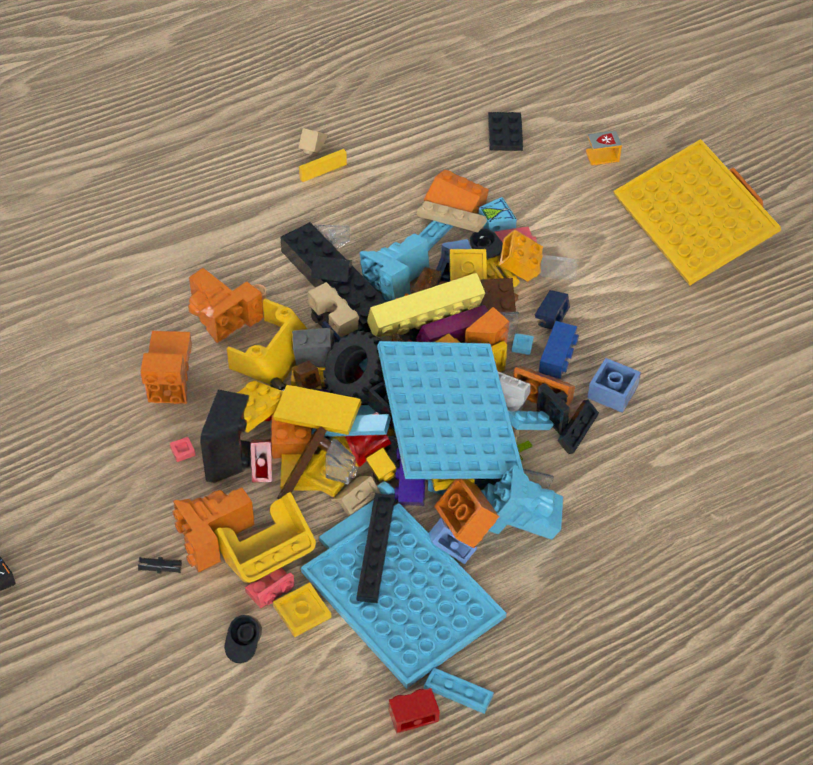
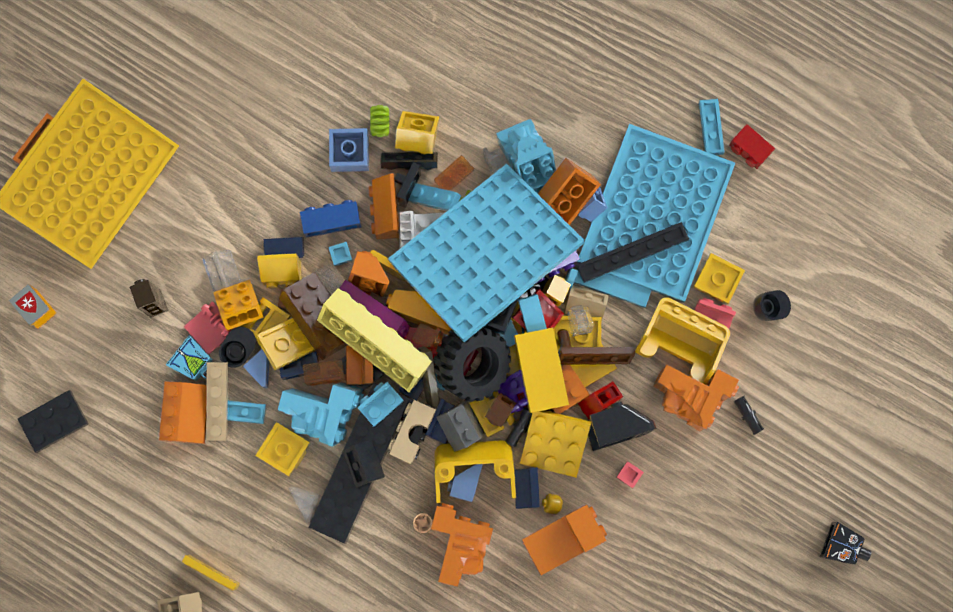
camera: 120 degrees left, 30 degrees up
(203, 389) = (552, 503): none -> yellow piece
(228, 377) = (527, 488): none -> dark blue panel
(262, 332) = (465, 483): none -> medium blue slope
(371, 295) = (380, 403): none -> medium azure bracket
(381, 234) = (283, 449): none -> yellow panel
(533, 295) = (279, 269): none -> yellow slope
(544, 453) = (454, 174): none -> clear orange plate
(563, 202) = (148, 298): none -> dark brown brick
(603, 444) = (416, 132): none -> yellow slope
(629, 418) = (379, 120): none -> lime gear

